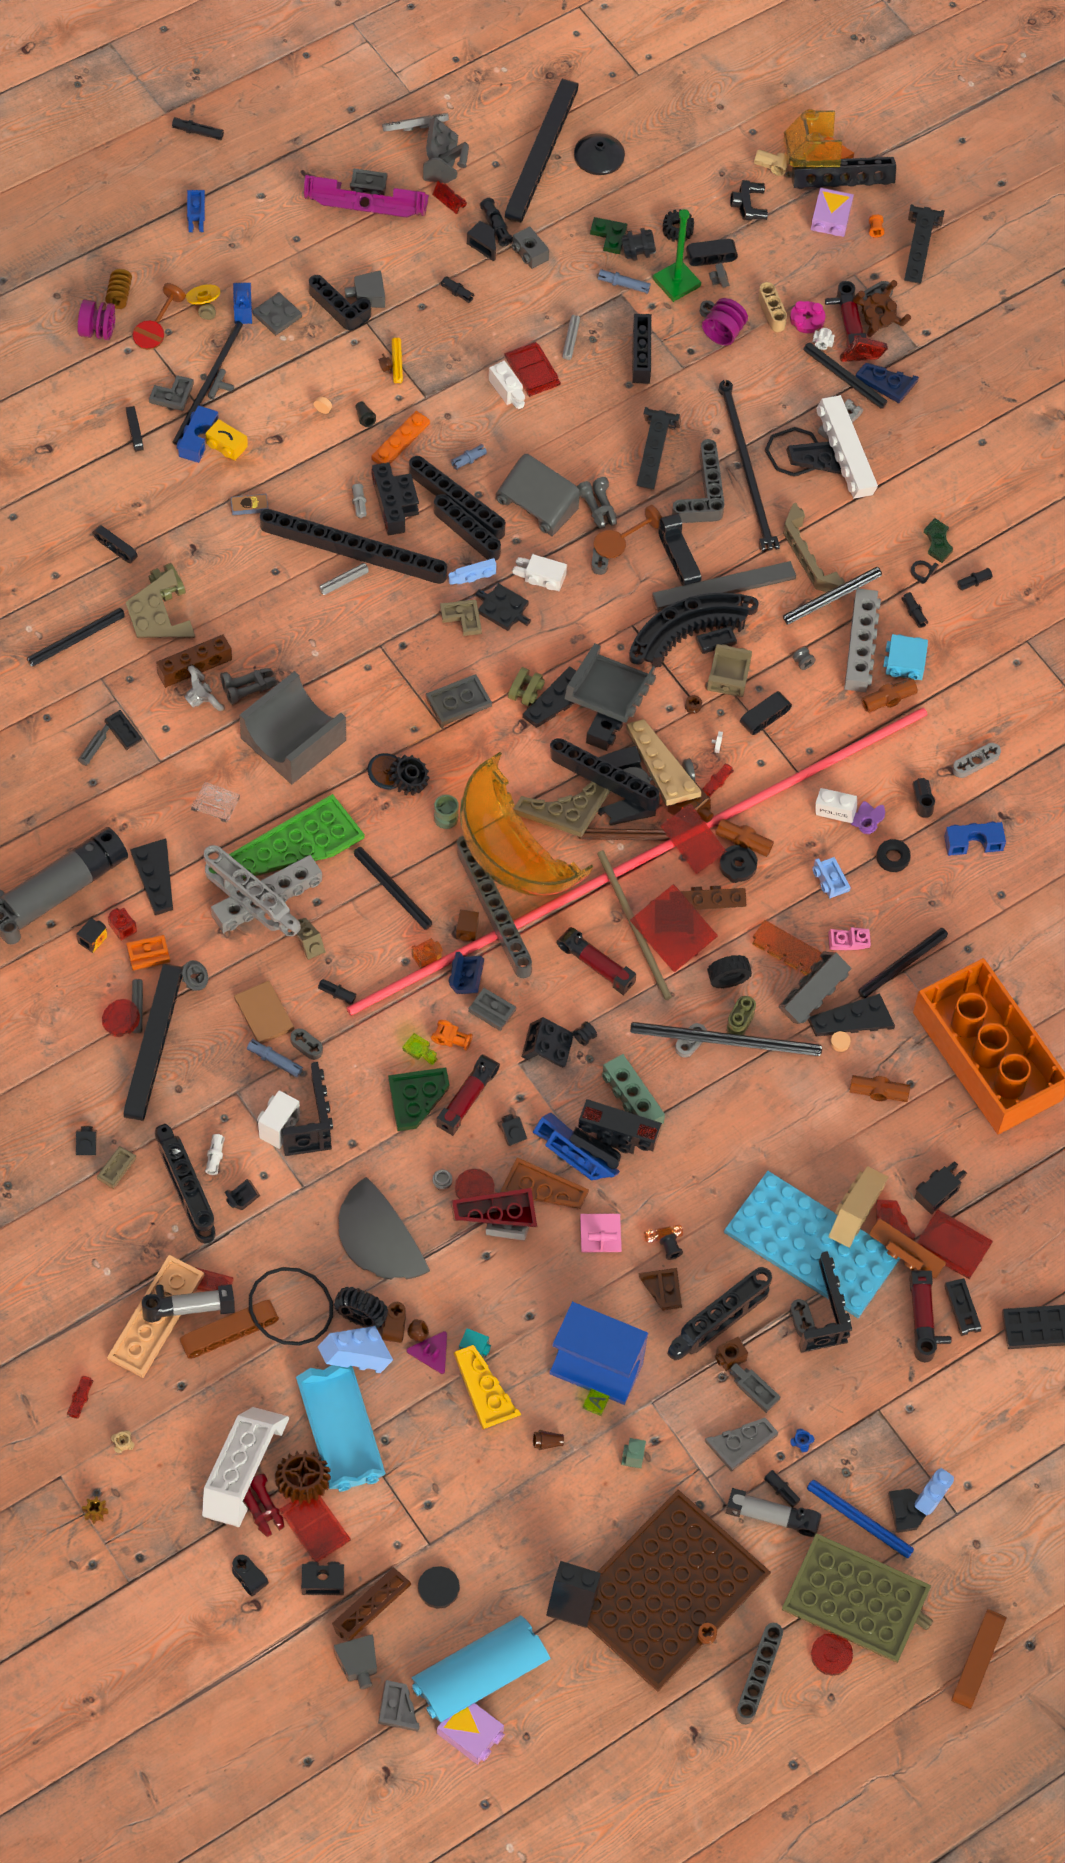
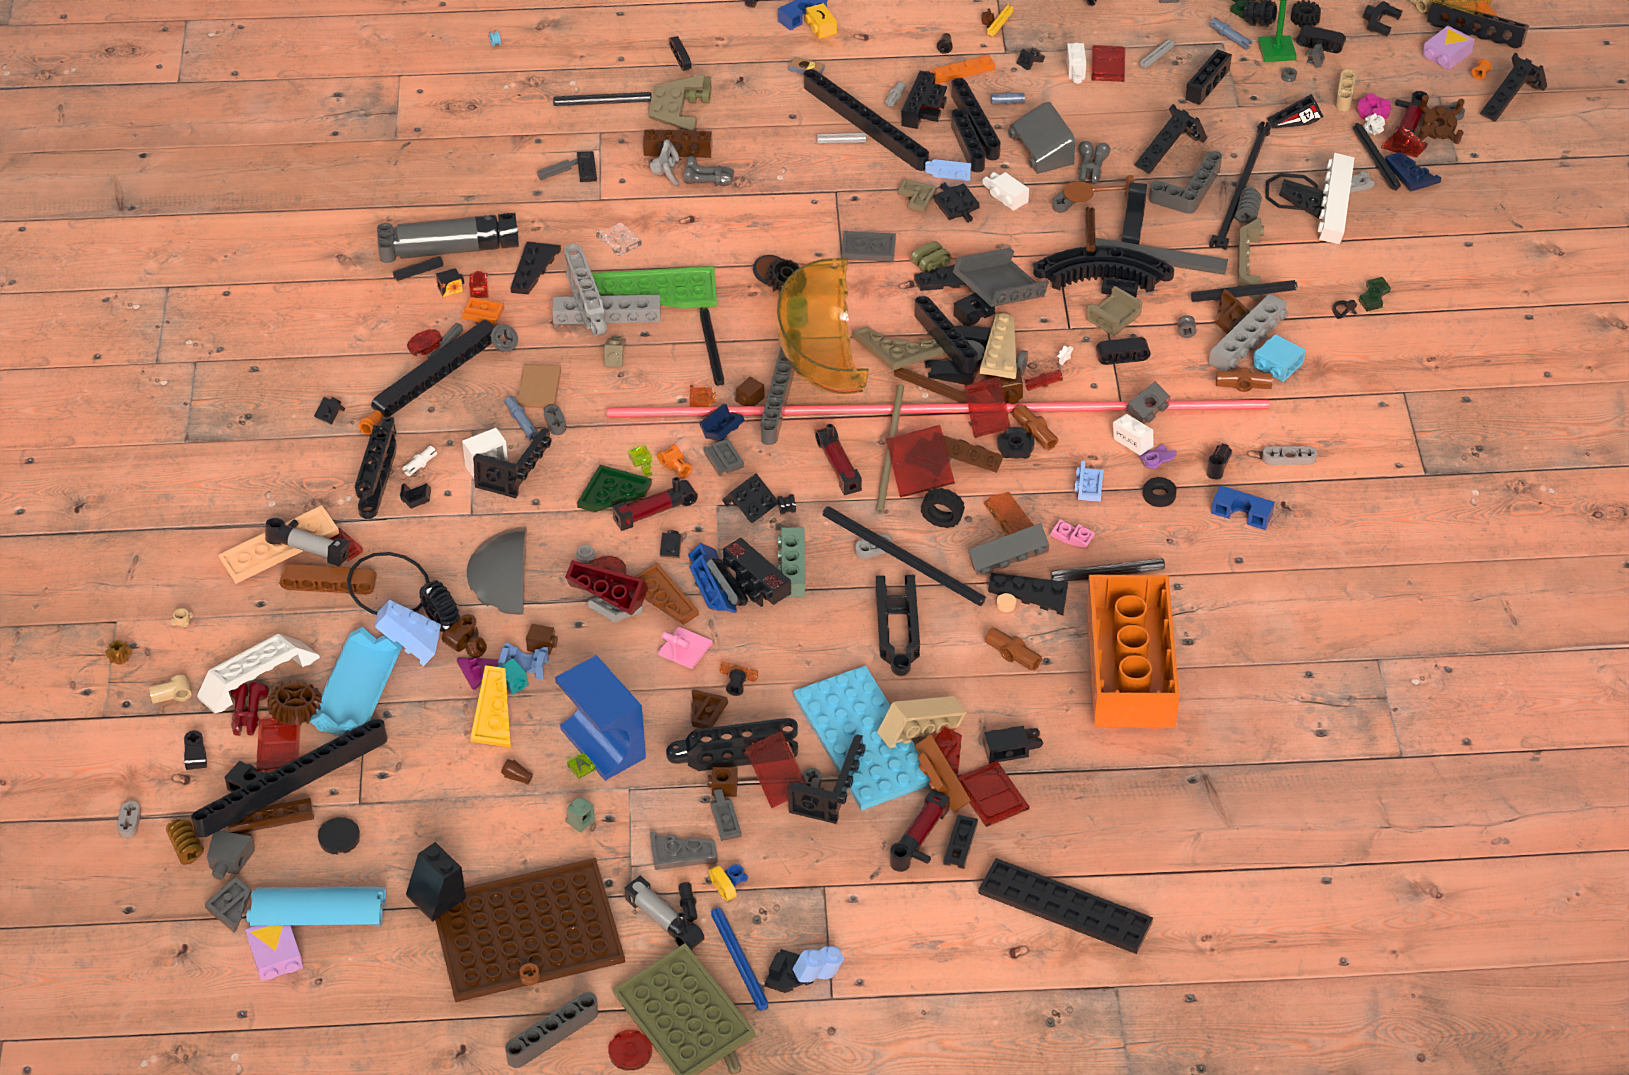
camera: 35 degrees right, 15 degrees down
(46, 932) = (418, 268): none -> black axle
(80, 1397) = (175, 573): clear red pin -> none
(116, 1167) = (337, 436): dark tan plate -> none
(137, 1135) = (367, 423): none -> orange cone
(179, 1519) = (176, 689): none -> tan piece
(235, 1677) = (133, 819): none -> light grey beam
(291, 729) = (714, 209): dark grey piece -> none
(311, 1669) = (184, 840): none -> pearl gold piece
(323, 405) = (916, 25): light nougat tile -> none
(337, 991) = (608, 394): black axle -> none
(363, 1565) = (288, 778): none -> black beam
(457, 396) = (1029, 56): none -> black bracket
(471, 1291) = (540, 637): none -> reddish brown brick
(471, 1320) = (528, 662): none -> medium blue piece
(652, 586) = (1090, 229): none -> reddish brown axle
(688, 706) = (1065, 323): reddish brown bush -> none
(725, 321) = (1293, 82): magenta wheel -> none
(741, 1015) = (930, 545): olive brick -> none
(747, 358) = (1298, 114): none -> black slope
(772, 489) = (1248, 205): none -> dark grey piece
(774, 1321) = (775, 767): none -> clear red piece
(794, 1150) = (898, 604): none -> black piece
(798, 1455) = (722, 883): none -> yellow beam
(822, 773) = (1153, 394): none -> dark grey brick
(832, 624) = (1230, 311): none -> reddish brown wing
(914, 610) = (1314, 332): black pin -> none
(974, 579) = (1387, 330): black axle -> none

